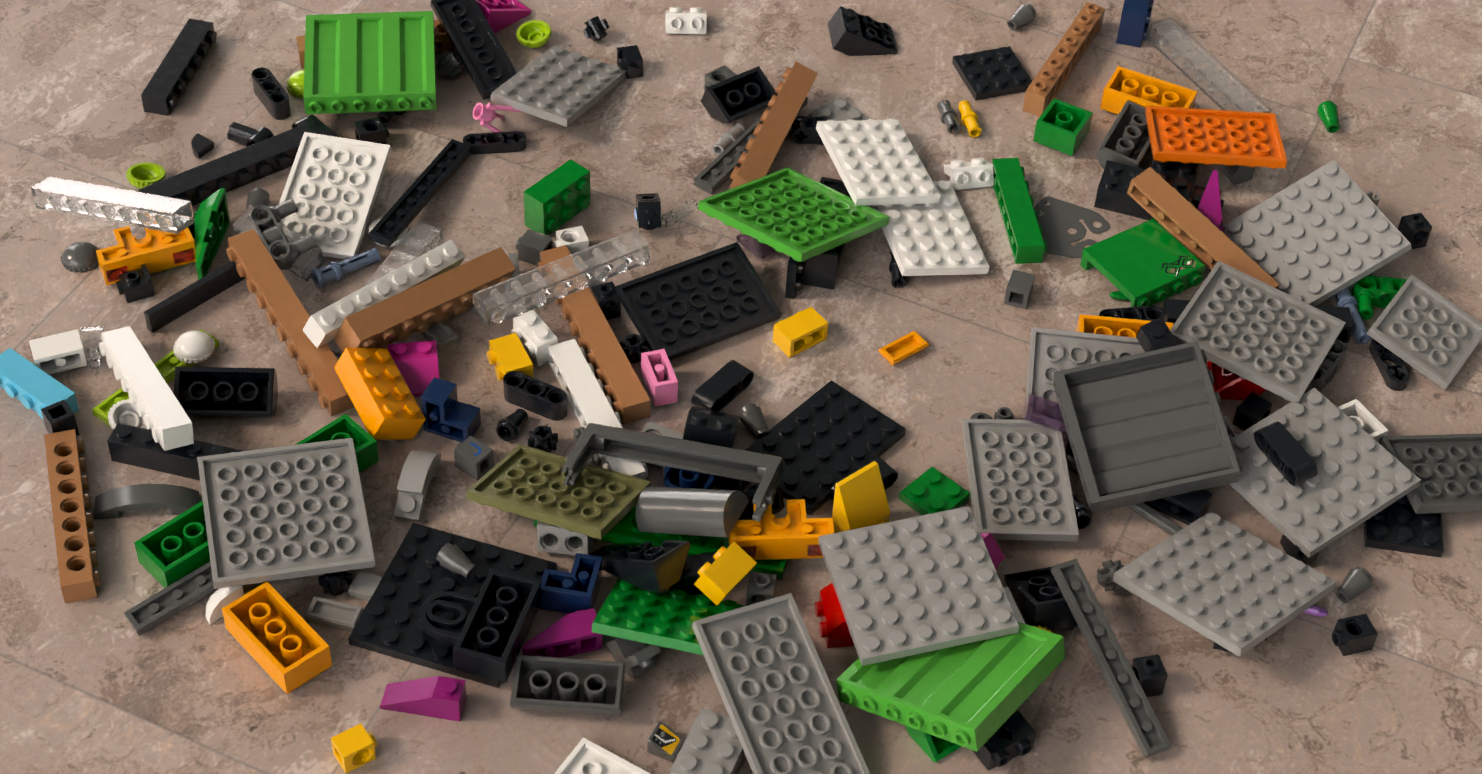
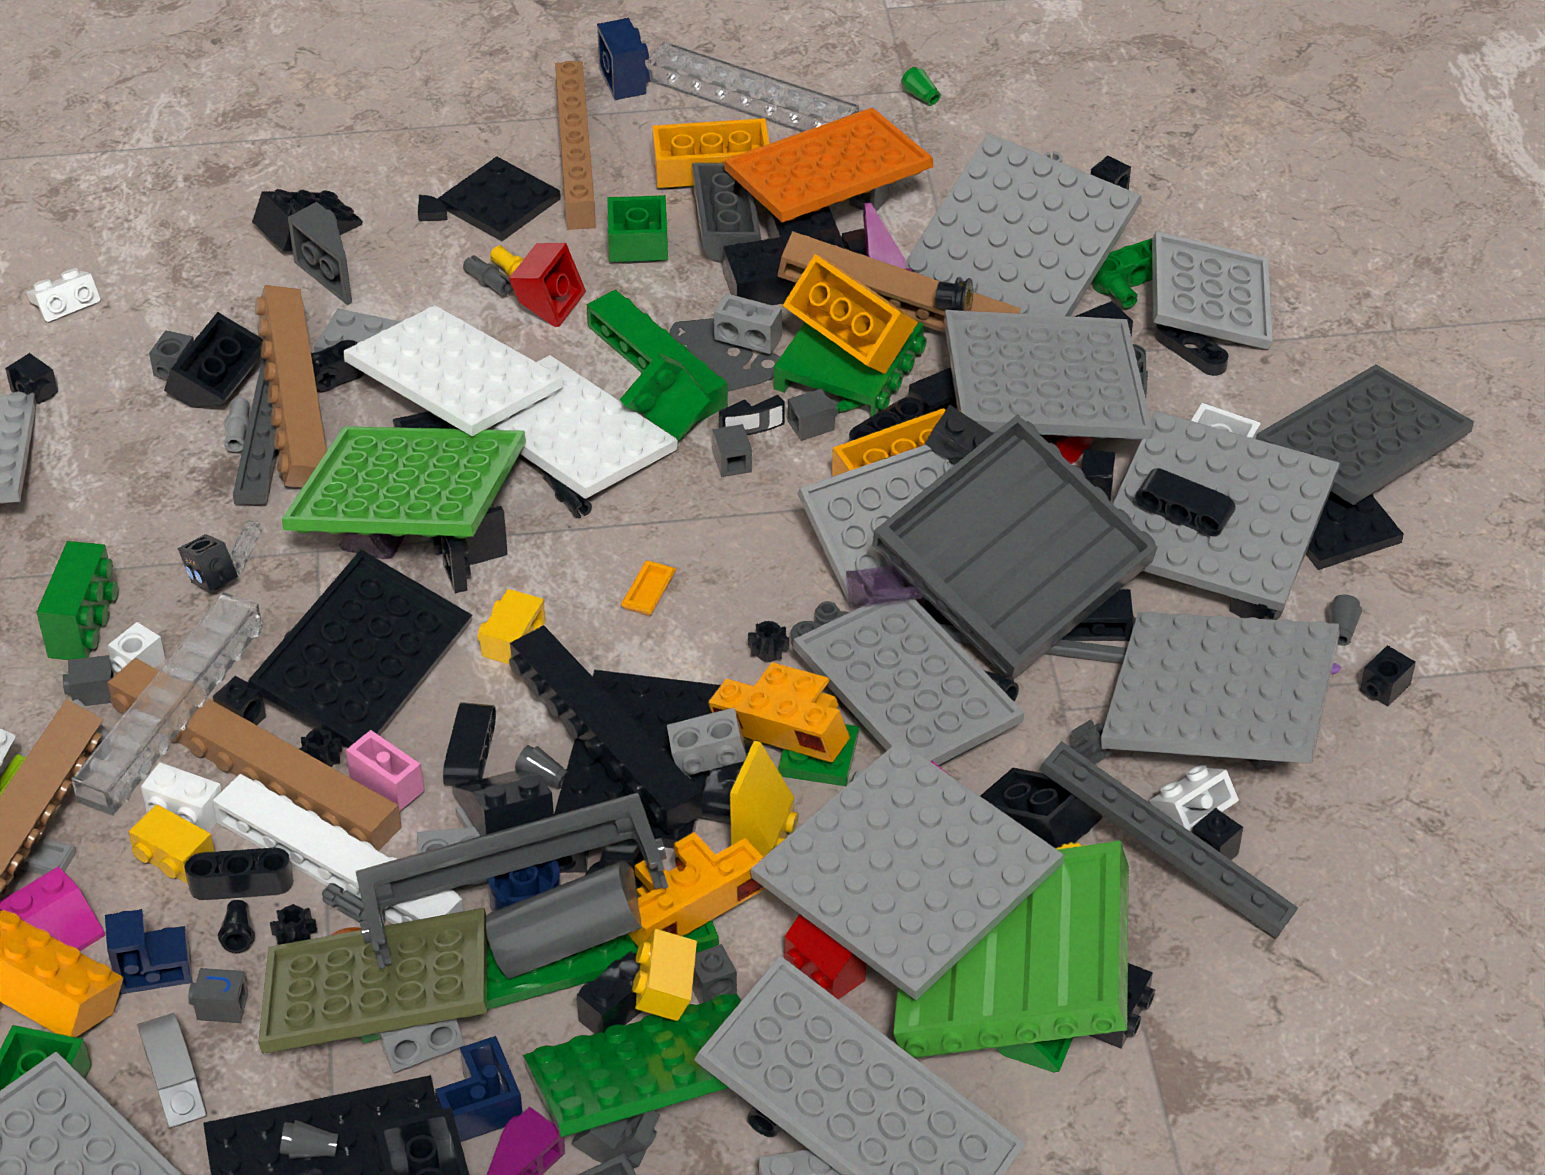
camera: 30 degrees left, 0 degrees up
(646, 565) = (555, 1018): black wedge -> none
(804, 417) = (605, 729): none -> black brick
(854, 55) = (320, 249): none -> dark grey slope
(854, 451) = (707, 742): none -> light grey brick
(923, 458) = (786, 711): none -> light orange piece
(944, 61) = (431, 209): none -> black tile
(951, 414) = (768, 641): none -> black gear
(970, 174) = (567, 335): white bracket -> none
(979, 134) = (548, 282): none -> red slope
(1000, 236) = (667, 396): none -> green bracket
(1022, 16) = (485, 110): dark grey cone -> none
(1049, 276) = (755, 418): none -> slope
(1088, 215) = (748, 323): none -> light grey brick
(1089, 290) = (811, 414): none -> dark grey brick
(1144, 641) = (1196, 795): none -> white brick
(1151, 235) = (850, 314): none -> light orange brick
(1233, 255) = (955, 295): none -> black piece
(1345, 299) = (1099, 295): sand blue pin -> none

